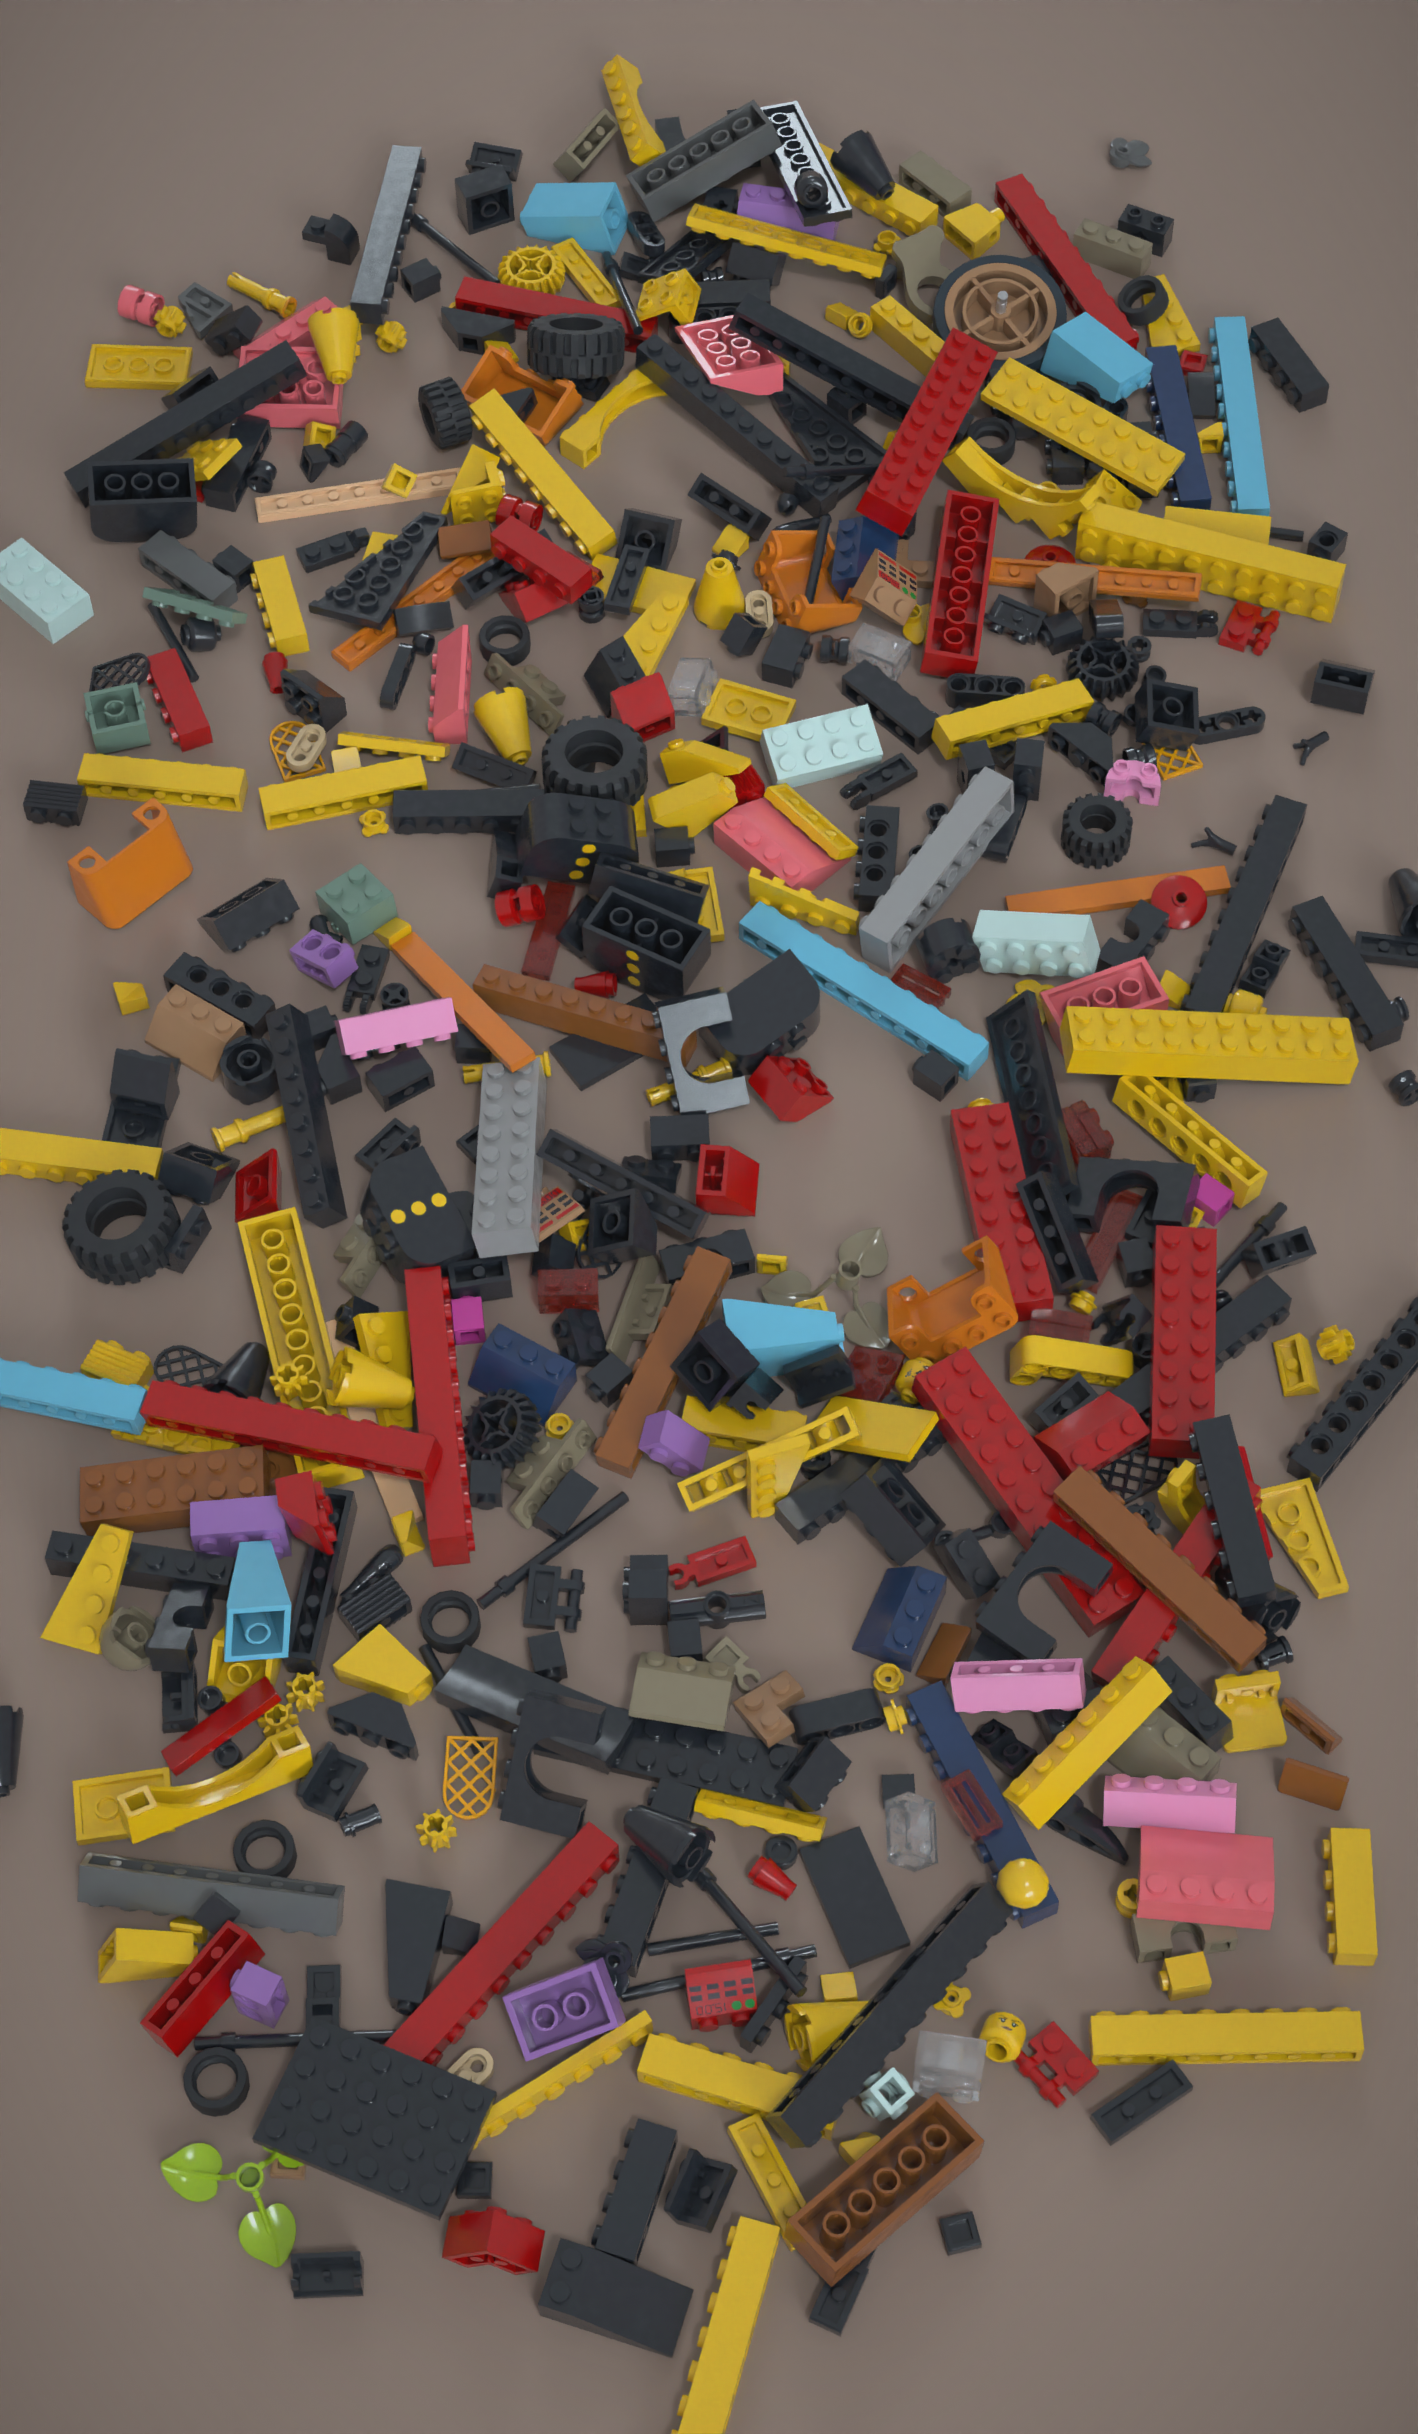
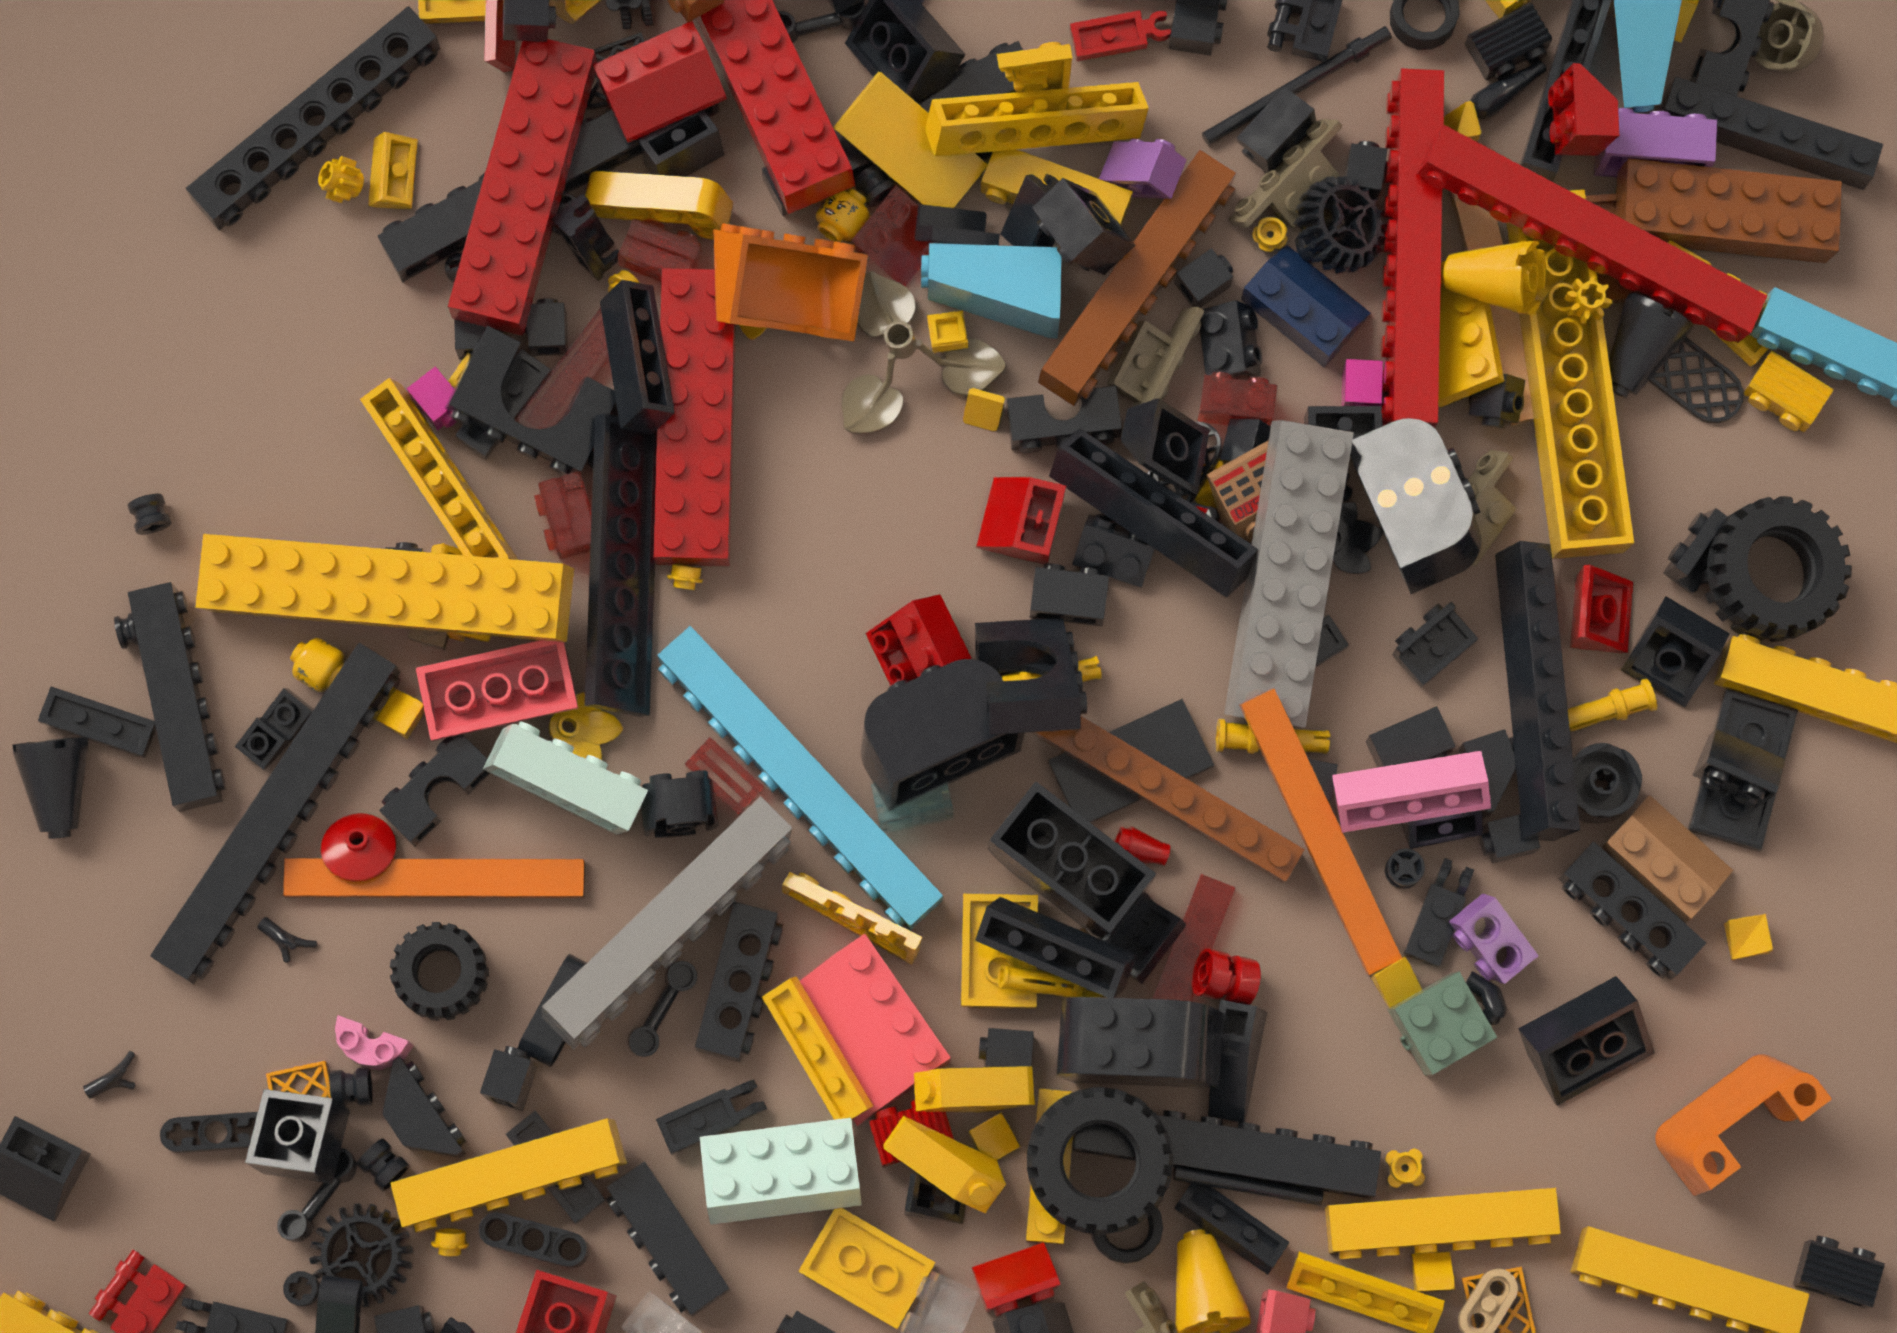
camera: 175 degrees left, 20 degrees up
(91, 1591) = (1830, 96): yellow wing -> none
(935, 1075) = (733, 634): black brick -> none
(971, 761) = (579, 1086): black brick -> none
(1263, 1227) = (379, 357): black bar -> none
(1279, 1252) = (374, 304): black brick -> none

